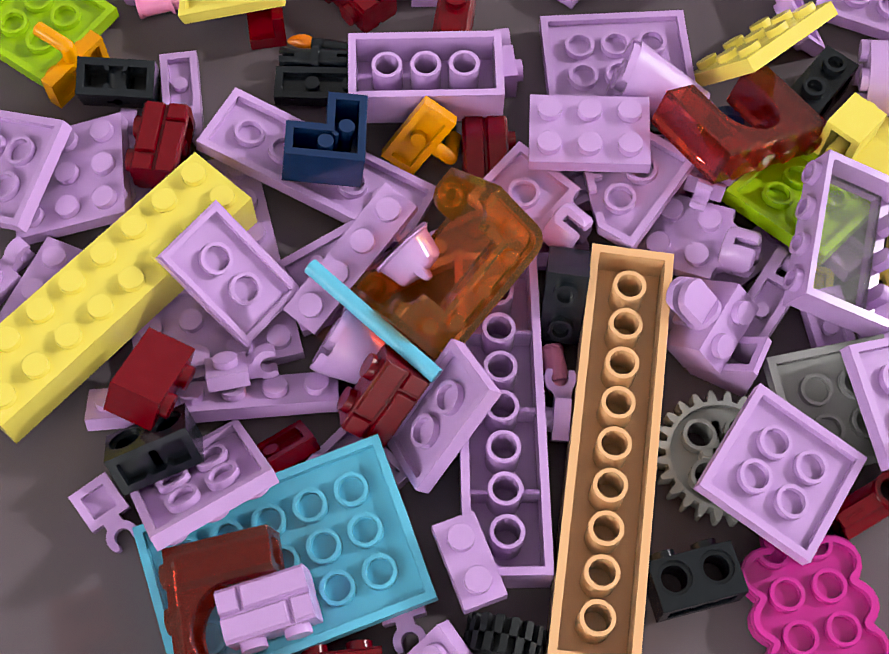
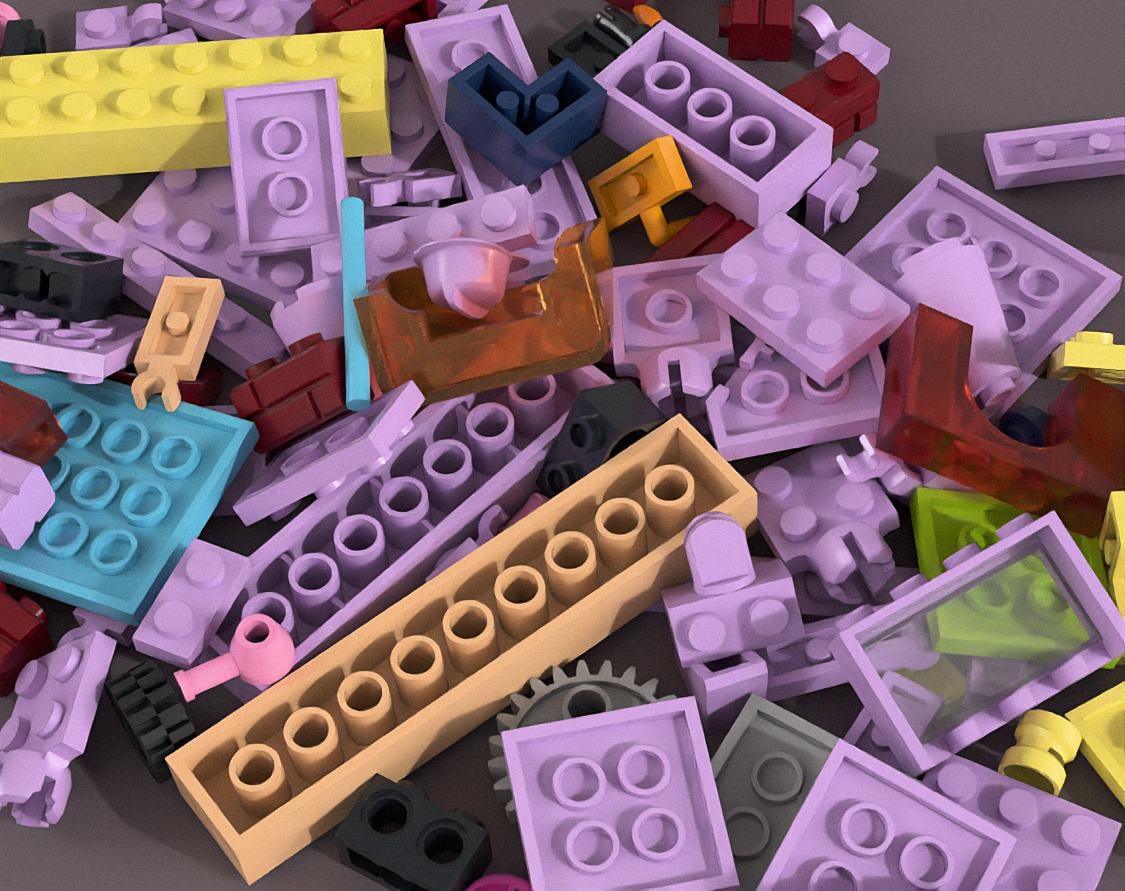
camera: 50 degrees right, 10 degrees down
(149, 379) = (109, 205): dark red brick -> none
(234, 370) = (203, 260): lavender plate -> none
(275, 422) = (176, 338): none -> light nougat plate
(292, 229) = (417, 187): none -> lavender plate
(529, 569) = (252, 662): none -> bright pink bar

